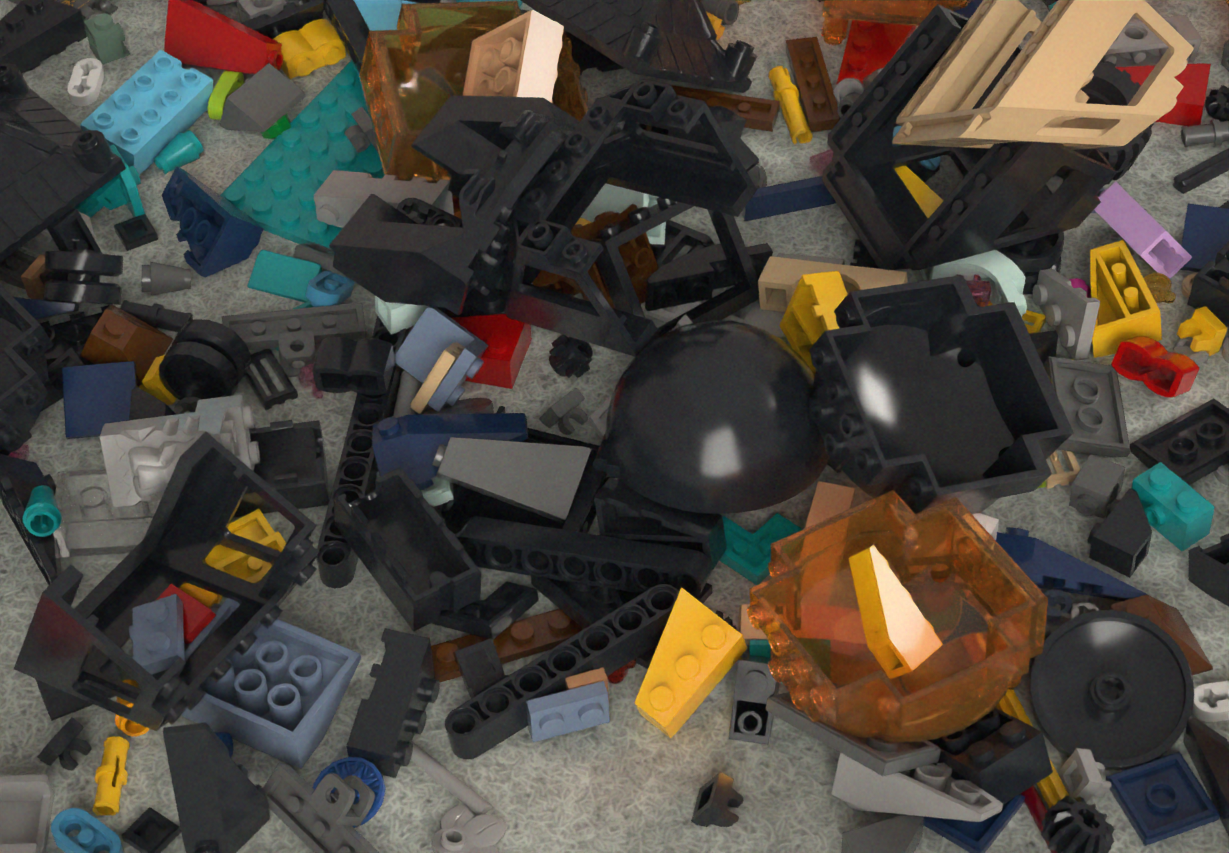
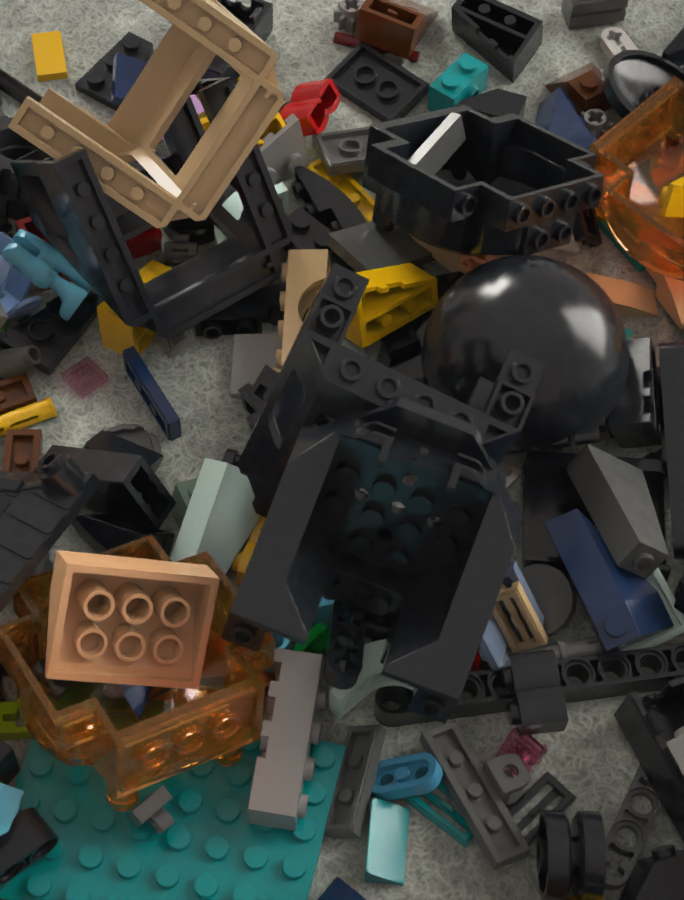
camera: 110 degrees left, 10 degrees up
(992, 382) = (440, 144): none -> dark grey tile

